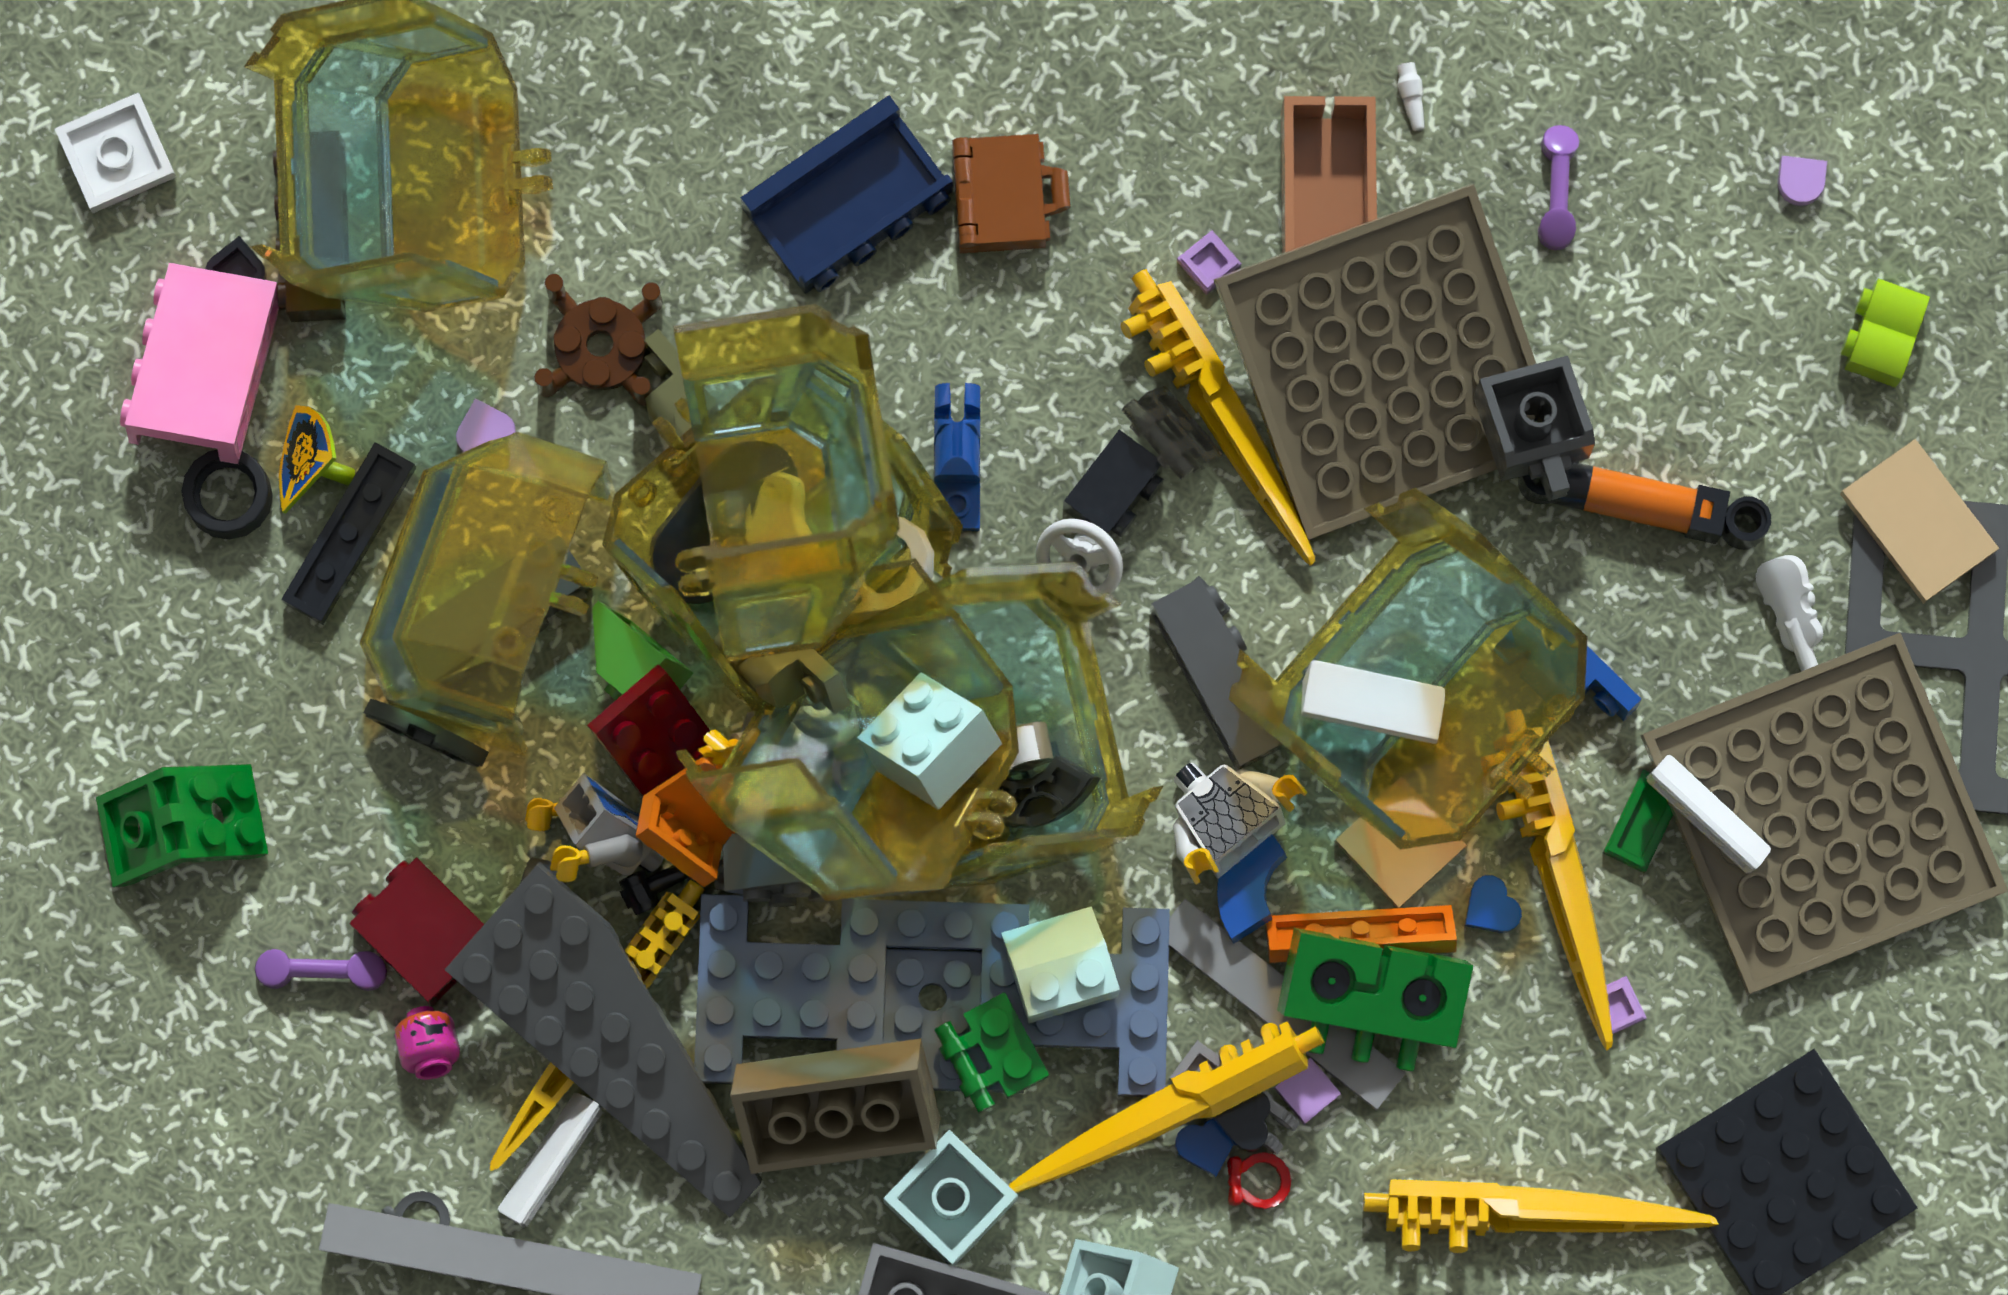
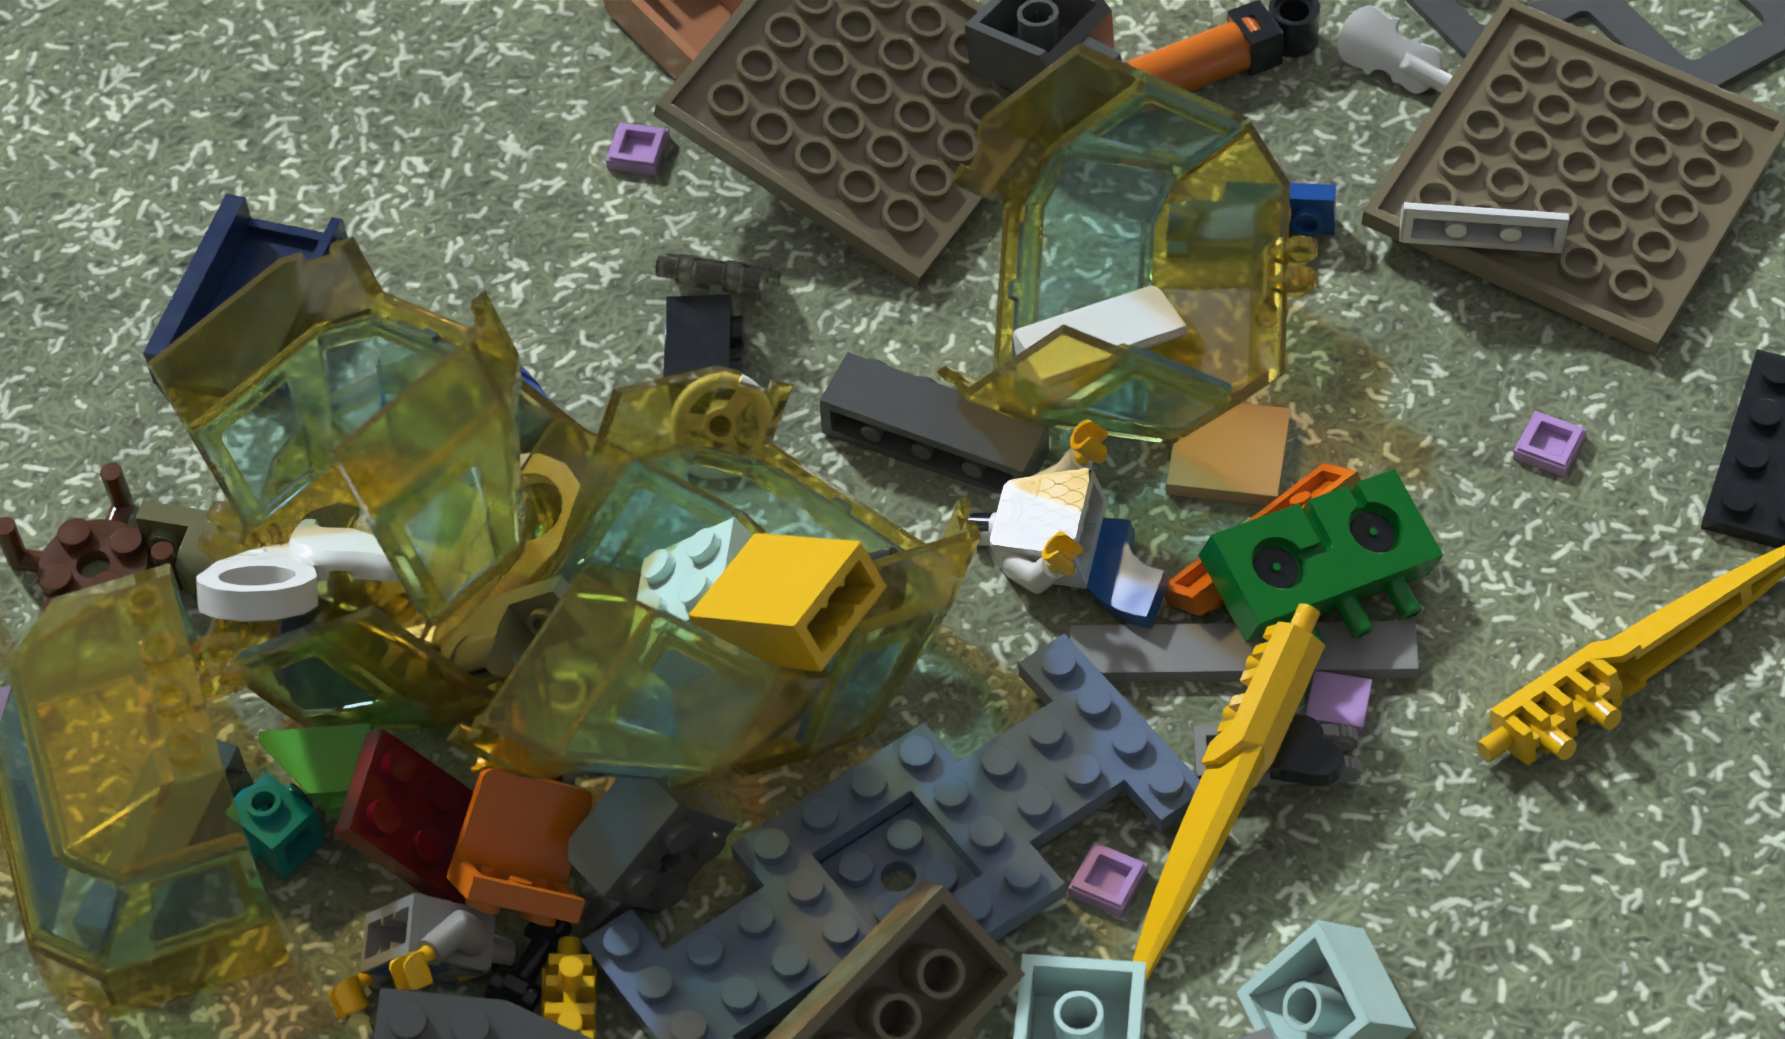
camera: 30 degrees left, 25 degrees down
(425, 733) = (164, 997): pearl dark grey tile -> none
(576, 669) = (278, 824): none -> teal brick
(668, 521) = (283, 578): none -> white animal
(952, 821) = (791, 598): none -> yellow brick
(1003, 193) = (401, 210): dark orange piece -> none
(1004, 1045) = (1008, 846): green plate -> none
(1060, 964) = (1008, 736): light aqua slope -> none
(1060, 1100) = (1108, 880): none -> lavender tile
(1204, 1146) = (1286, 817): blue tile -> none
(1212, 395) = (706, 222): yellow piece -> none
(1238, 1194) = (1357, 835): red piece -> none
(1491, 907) = (1361, 443): blue tile -> none
(1564, 884) = (1351, 342): yellow piece -> none
(1639, 826) = (1428, 294): green tile -> none

